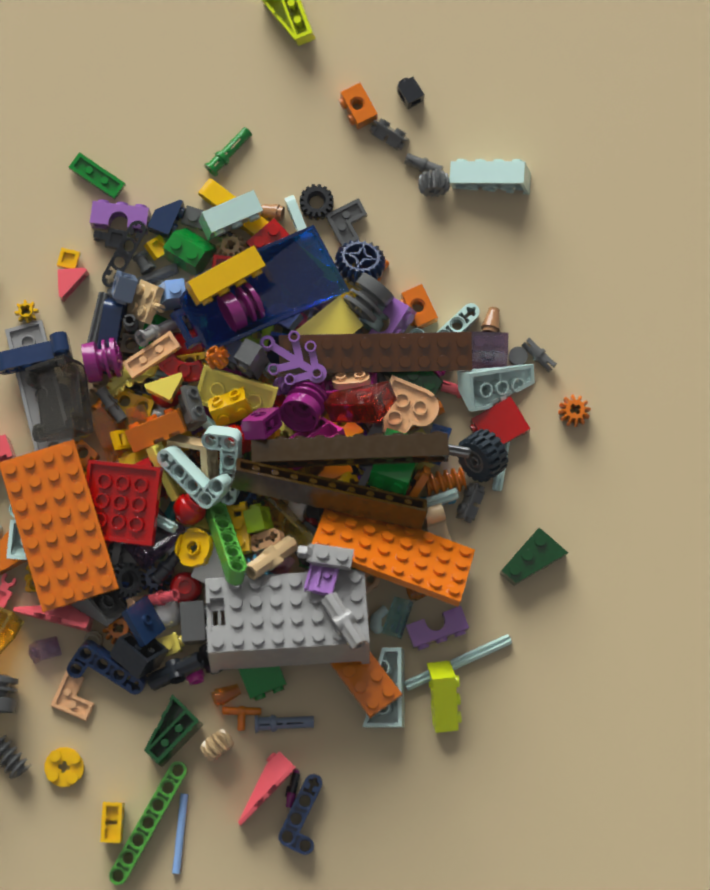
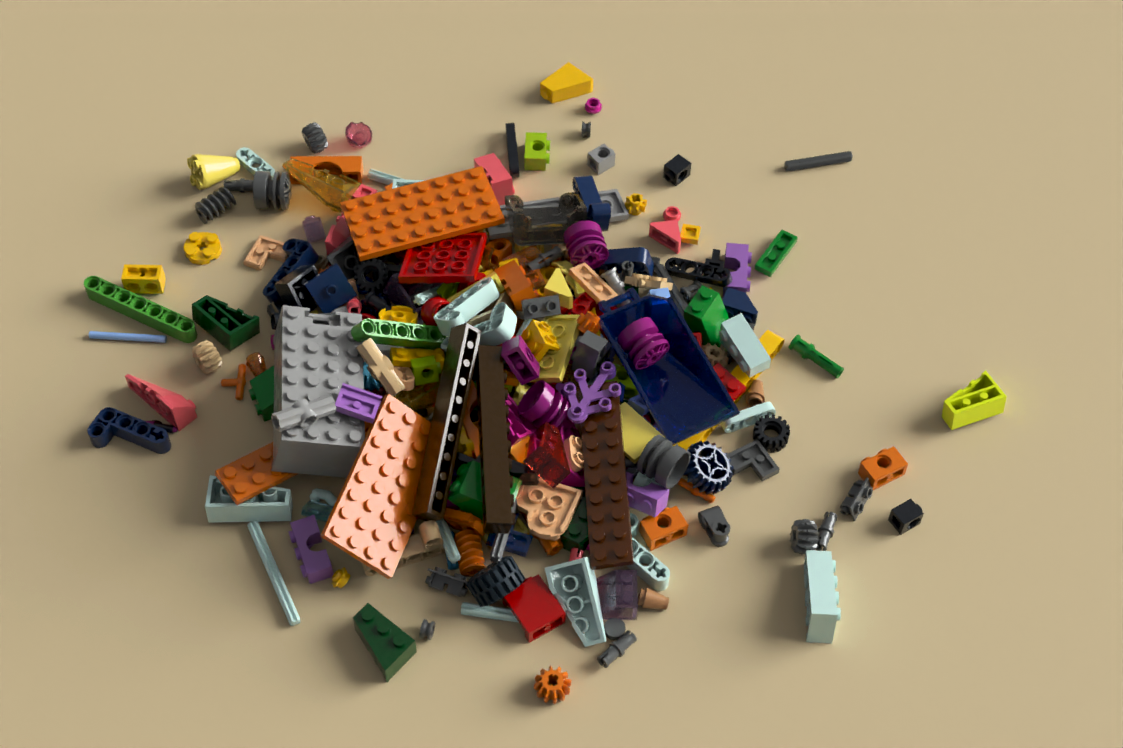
camera: 90 degrees right, 25 degrees down
(40, 276) = (671, 214): none -> coral plate
(124, 287) = (661, 263): sand blue brick -> none
(225, 275) = (671, 318): yellow brick -> none
(273, 723) = (224, 408): sand blue pin -> none
(327, 556) = (375, 405): light grey hinge -> none
(414, 262) = (715, 525): none -> dark grey piece
(444, 696) = (235, 550): neon yellow wedge -> none
(468, 599) = (340, 578): none -> yellow plate
(520, 519) = (427, 629): none -> dark grey bush

